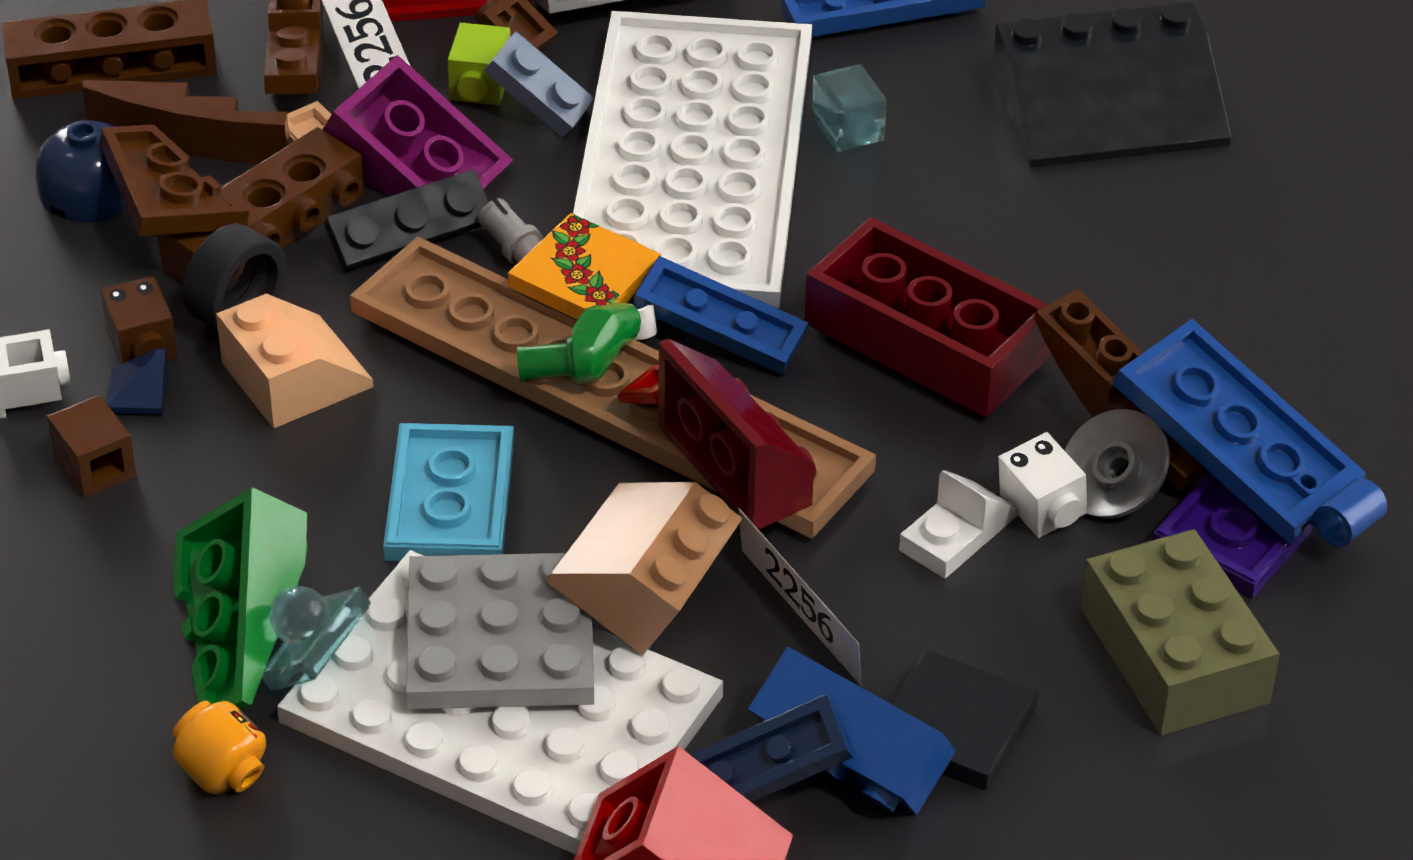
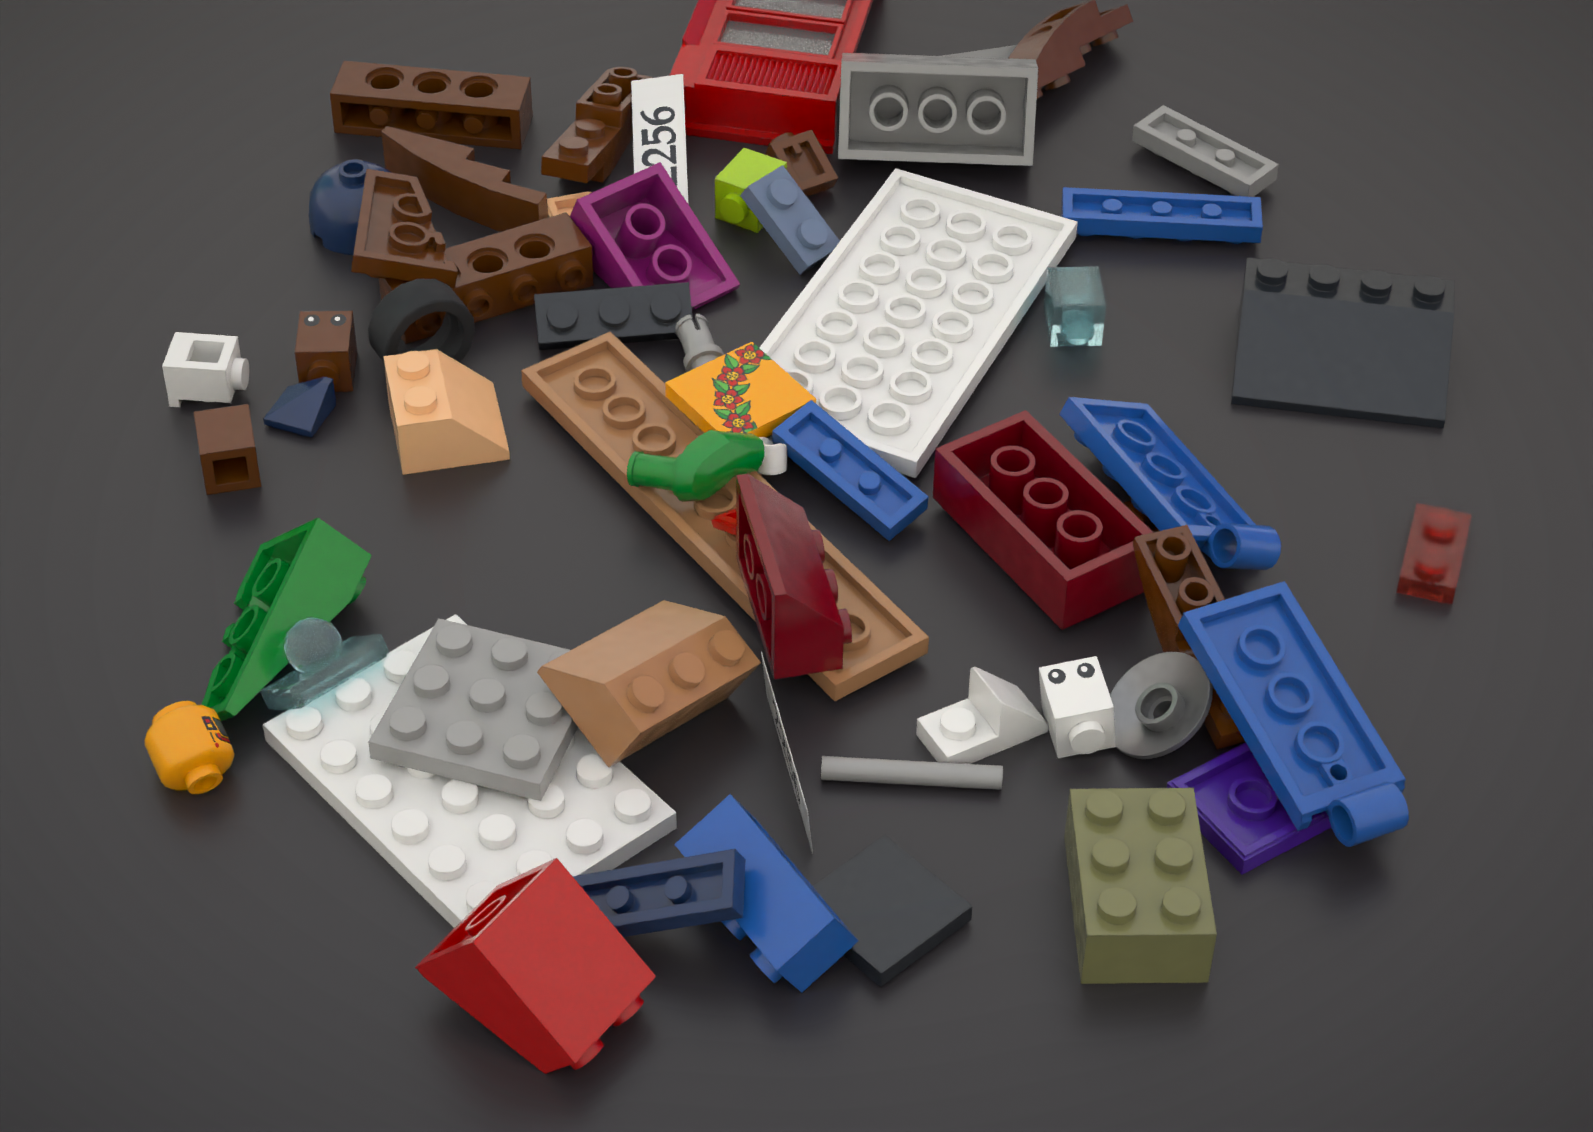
camera: 20 degrees right, 0 degrees up
(449, 490) = (524, 570): medium azure tile -> none
(916, 586) = (912, 772): none -> light grey bar
(1021, 253) = (1169, 481): none -> blue hinge
(1281, 263) = (1434, 553): none -> clear red plate

